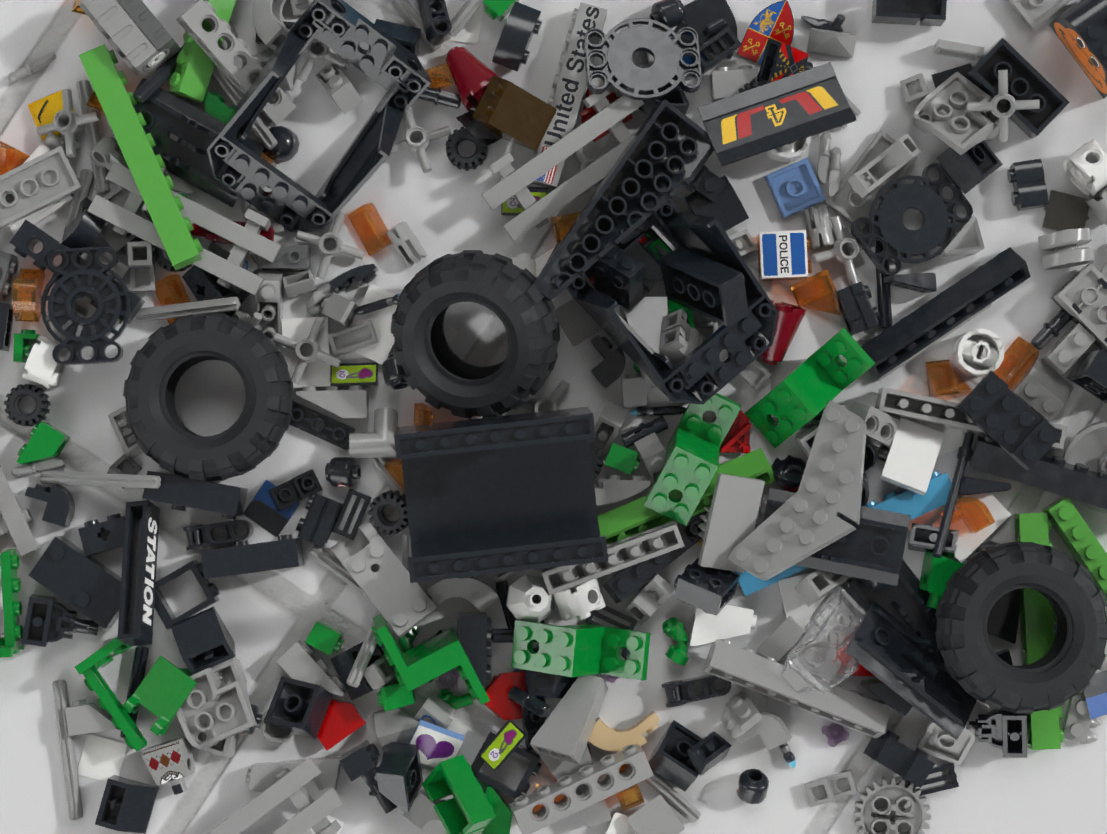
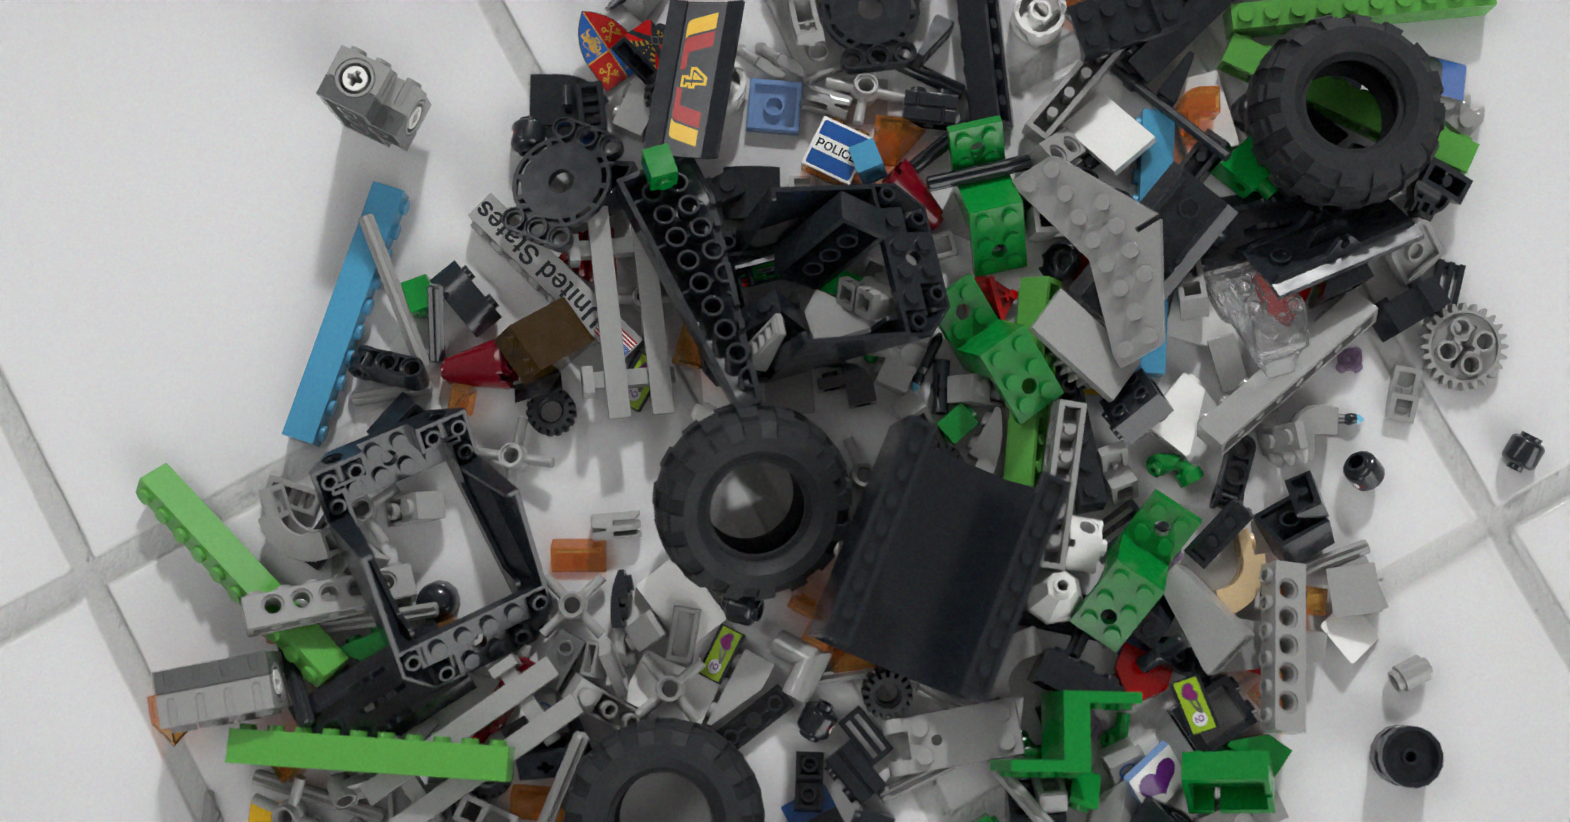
camera: 60 degrees left, 5 degrees down
(254, 320) = (608, 728): light grey bar -> none
(300, 299) = (613, 667): none -> light grey tile
(377, 305) = (663, 587): black piece -> none
(441, 97) = (485, 408): black axle -> none
(485, 24) = (436, 327): none -> axle
(599, 280) = (767, 342): none -> light grey slope
(645, 699) = (1219, 532): none -> black hinge
(691, 126) = (659, 167): none -> green brick
(787, 283) = (868, 161): none -> dark azure panel
(823, 371) = (978, 172): none -> black axle
(825, 329) = (932, 152): none -> black axle
(944, 380) = (1046, 64): clear orange slope -> none

